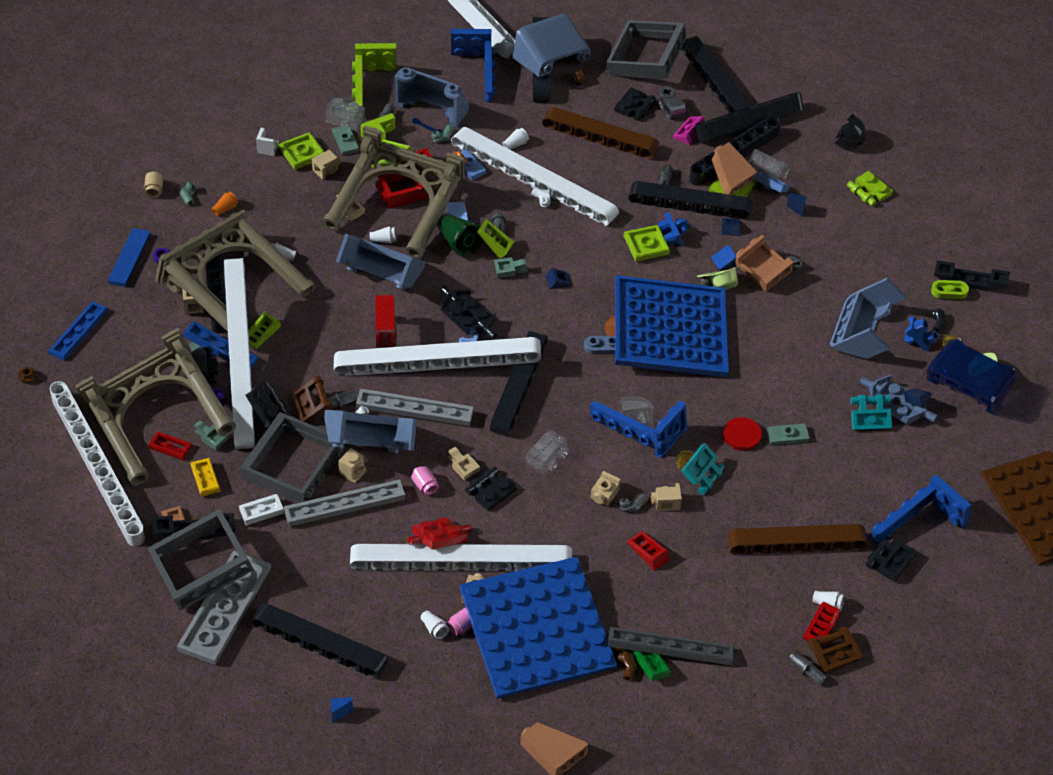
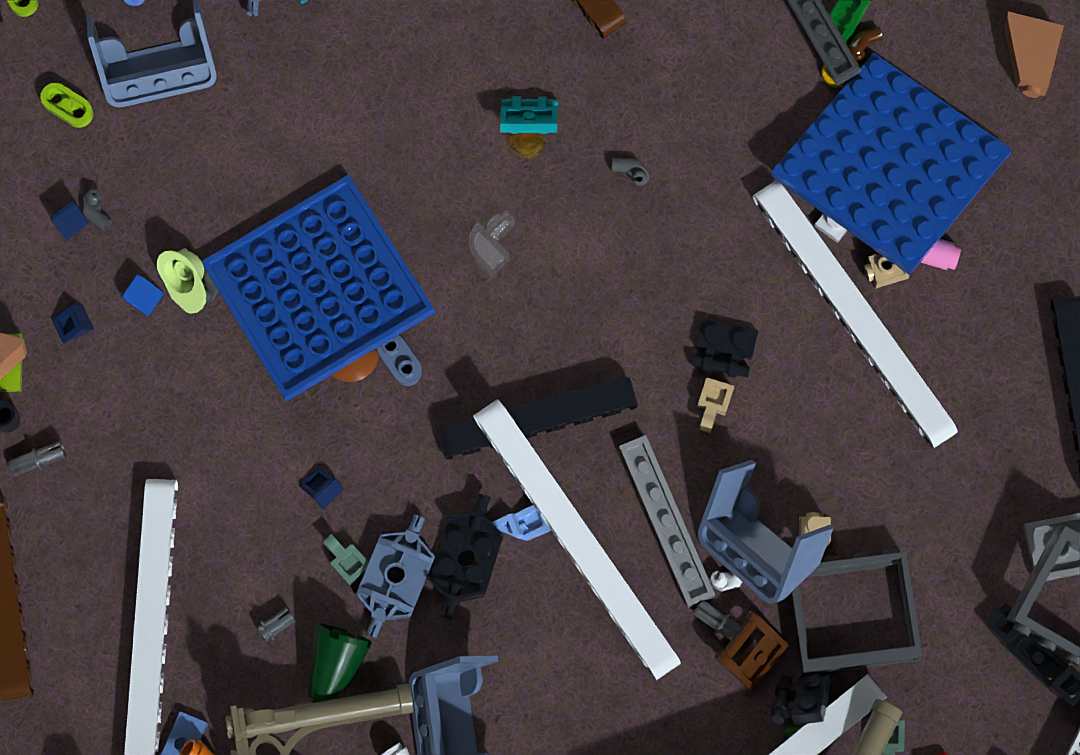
camera: 115 degrees left, 25 degrees up
(176, 512) = (1034, 697): nougat tile -> none
(205, 477) = (955, 701): yellow plate -> none
(261, 509) = (953, 596): white plate -> none
(344, 503) = (872, 503): light grey plate -> none
(384, 321) = (567, 641): red window -> none
(425, 480) = (772, 430): bright pink brick -> none
(436, 626) = (965, 282): white cone -> none
(439, 533) = (844, 354): red plate -> none
(457, 209) = (291, 691): light blue slope -> none
(489, 291) = (389, 599): none -> sand blue plate
(504, 240) = (316, 586): lime slope -> none
(517, 138) = (91, 708): white cone -> none
(544, 197) = (179, 600): white arm -> none
(547, 452) = (627, 313): clear brick -> none
(605, 488) = (629, 219): tan brick -> none
(646, 243) = (180, 409): lime plate -> none
(654, 560) = (693, 93): red slope -> none
(660, 438) = (508, 185): blue bracket -> none
(667, 498) = (598, 133): tan brick -> none
(679, 227) = (144, 379): blue hips -> none
(690, 199) = (62, 400): black beam -> none
(742, 434) = (432, 109): red tile -> none
(763, 263) = (127, 233): nougat panel -> none
(788, 434) = (396, 56): sand green plate -> none
(791, 247) = (69, 220): none -> dark blue slope
(860, 278) = (68, 105): none -> lime plate

